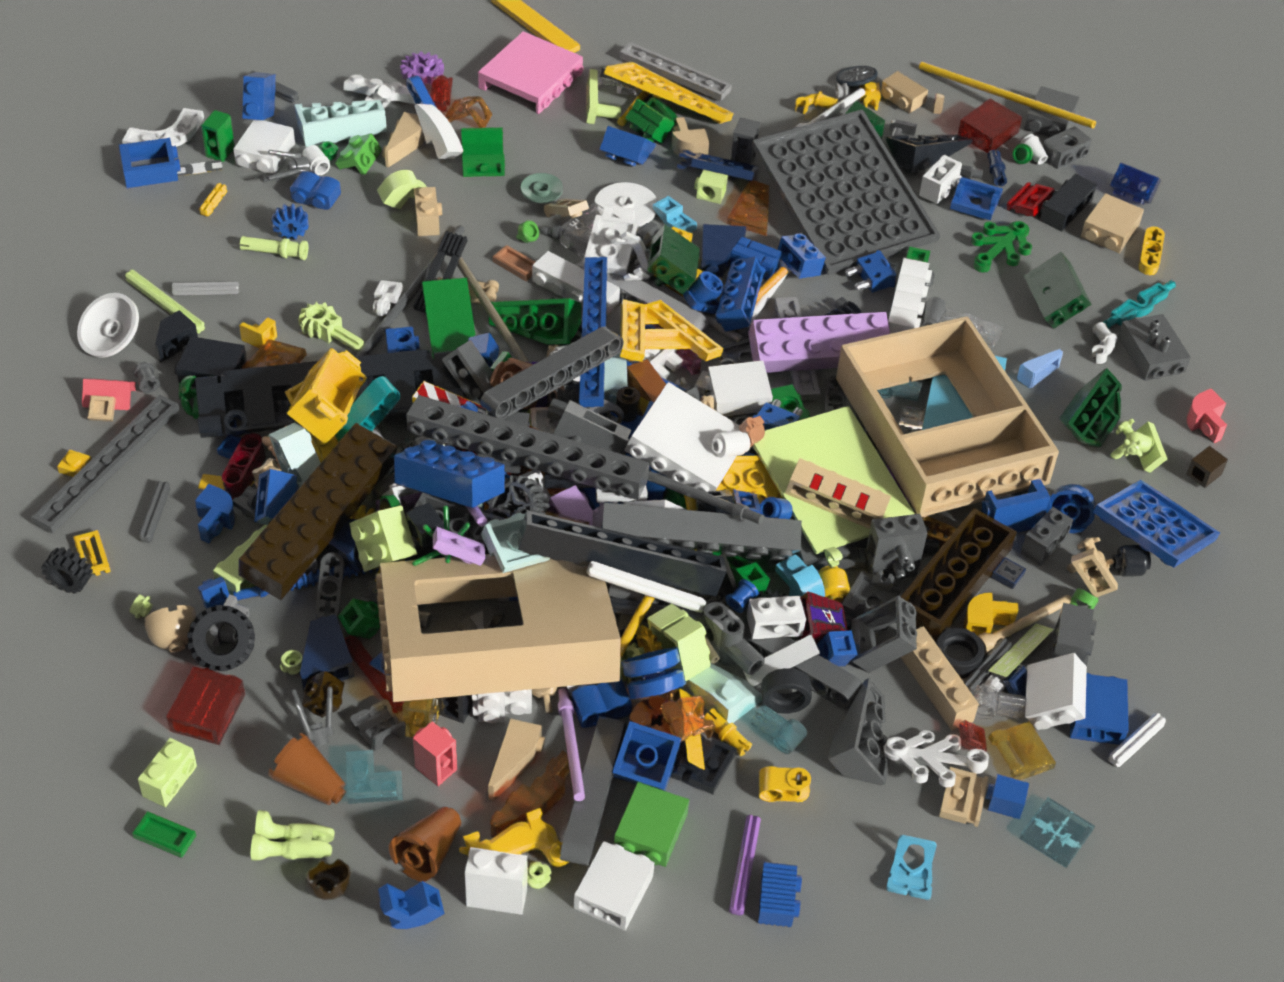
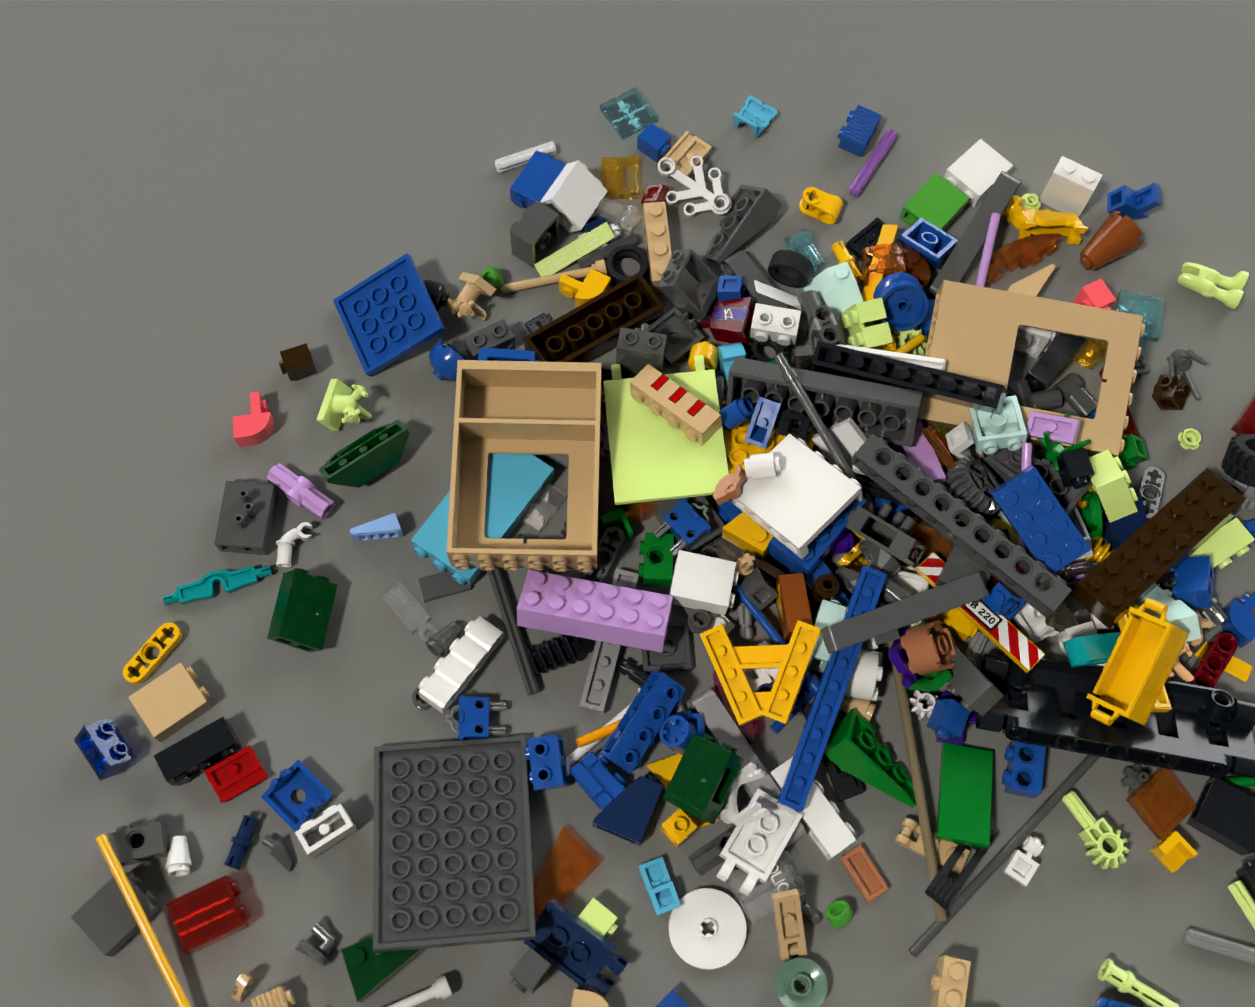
camera: 160 degrees left, 20 degrees up
(307, 771) = (1194, 326): dark orange cone -> none
(326, 651) = (1161, 433): dark blue slope -> none
(328, 880) = (1190, 240): dark brown hair -> none
(741, 595) = (798, 349): blue bush -> none
(918, 254) = (417, 723): green plate -> none
(924, 151) = (316, 899): black wedge -> none
(1015, 231) = (308, 717): green plant -> none
(1022, 153) = (199, 851): green plate -> none
(1129, 377) = (300, 491): none -> lavender piece

